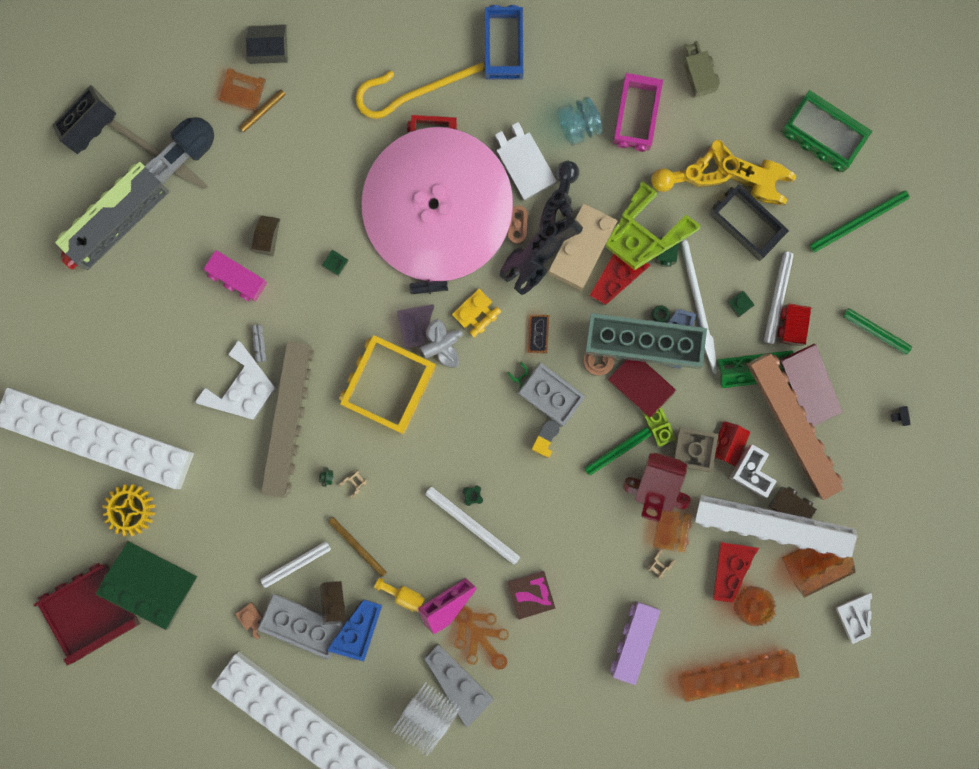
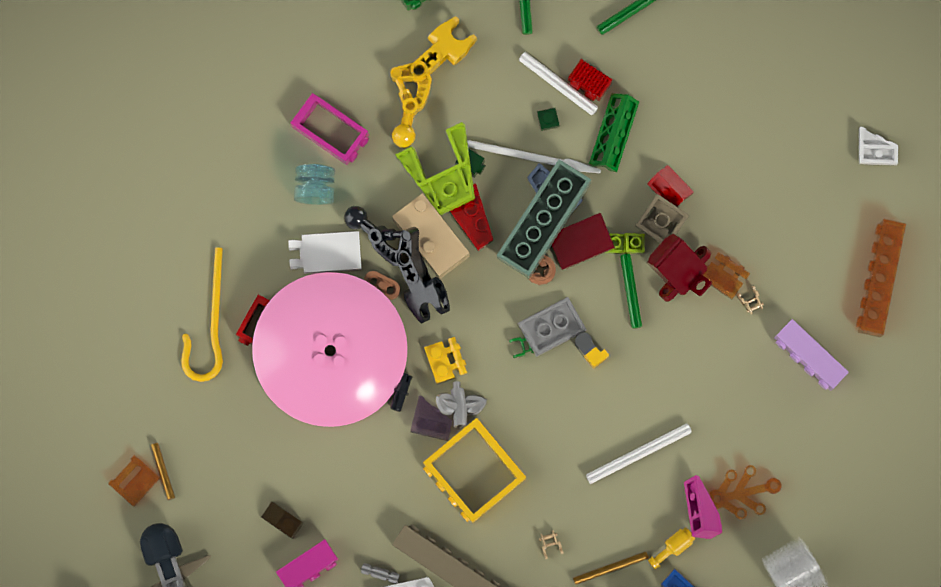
camera: 55 degrees left, 5 degrees down
(267, 44) = (102, 437): black slope -> none
(326, 477) = (533, 566): dark green plate -> none
(335, 263) = (338, 468): dark green plate -> none
(458, 685) = (778, 533): light grey wing -> none
(470, 500) = (616, 439): dark green plate -> none
(503, 72) = (236, 229): blue window -> none
(531, 595) = (726, 429): reddish brown tile -> none
(538, 334) = (491, 312): slope -> none
(660, 308) = (524, 189): dark green plate -> none
(700, 71) = (318, 56): olive brick -> none
(731, 569) = (784, 240): red wing -> none
(744, 602) = (821, 243): clear orange brick -> none
(748, 472) = (703, 183): white brick -> none
(763, 213) = (499, 53): black window -> none
(776, 526) = (762, 182): white brick -> none
(789, 503) = (752, 159): dark brown brick -> none
(795, 426) = (681, 122): nougat brick -> none
(812, 384) = (651, 92): tile -> none
(816, 570) = (814, 160): clear orange slope -> none
(902, 416) = (715, 25): black tile -> none

